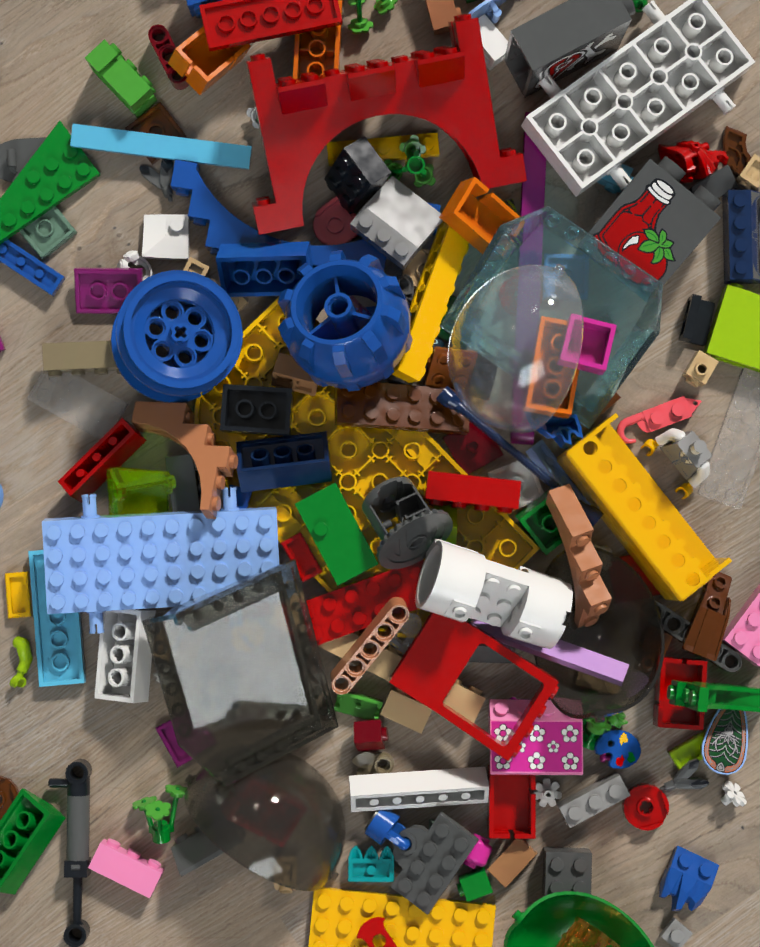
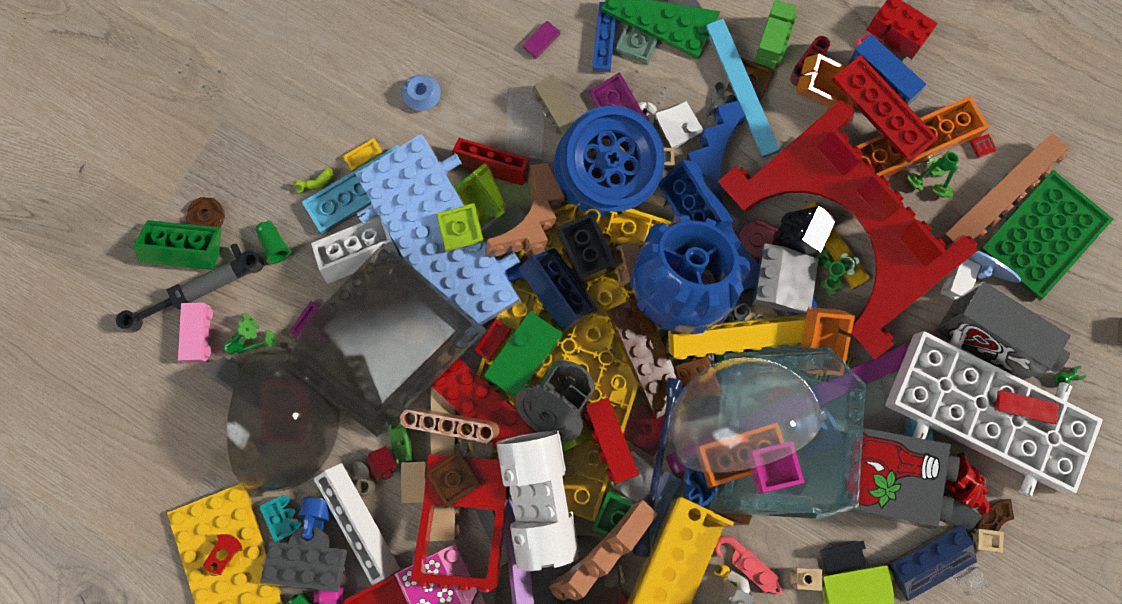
camera: 65 degrees right, 10 degrees down
(68, 739) = (272, 243): none -> green plant
(169, 531) = (460, 227): none -> lime tile
(428, 669) = (453, 479): none -> reddish brown tile
(651, 60) = (1026, 407): none -> red tile

